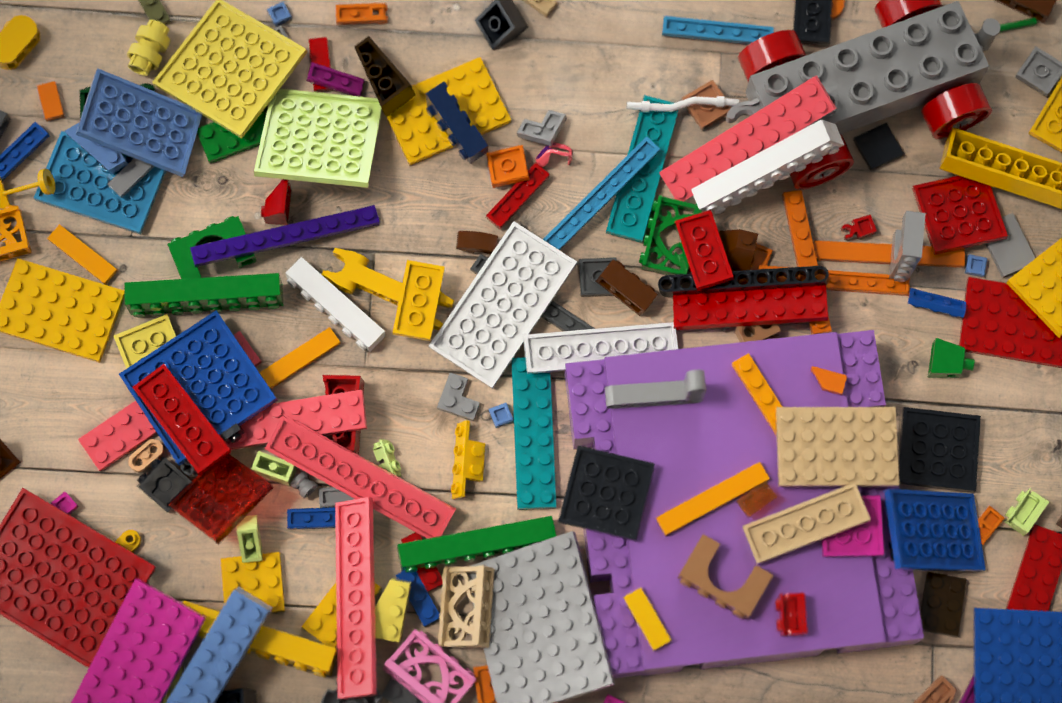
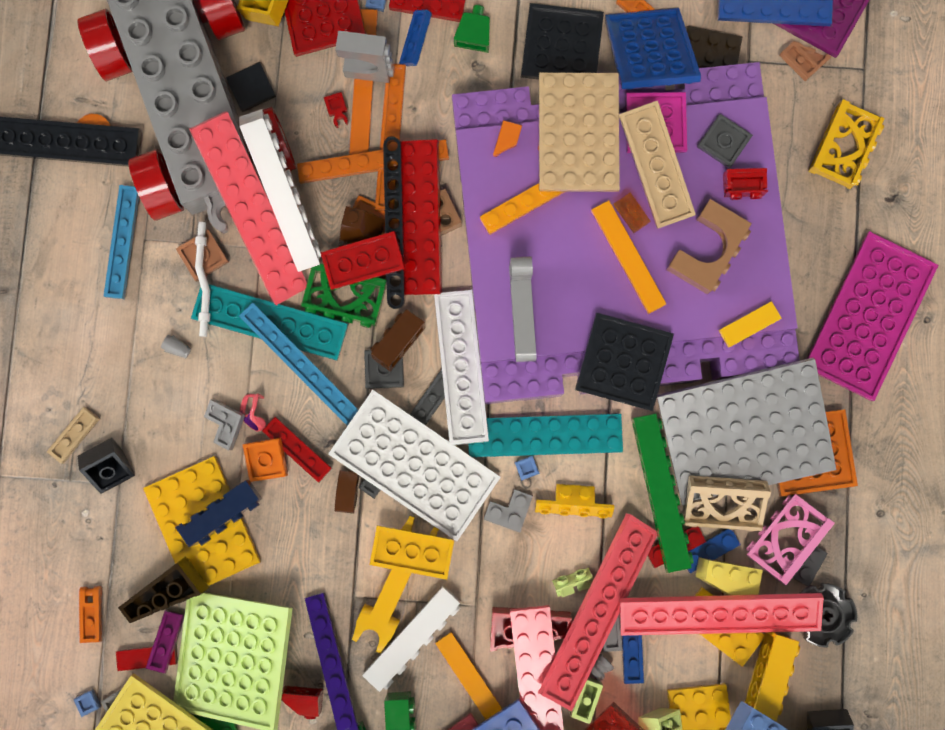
camera: 85 degrees left, 10 degrees up
(616, 82) = (176, 347): none -> light grey cone
(836, 596) = (724, 141): none -> dark grey tile

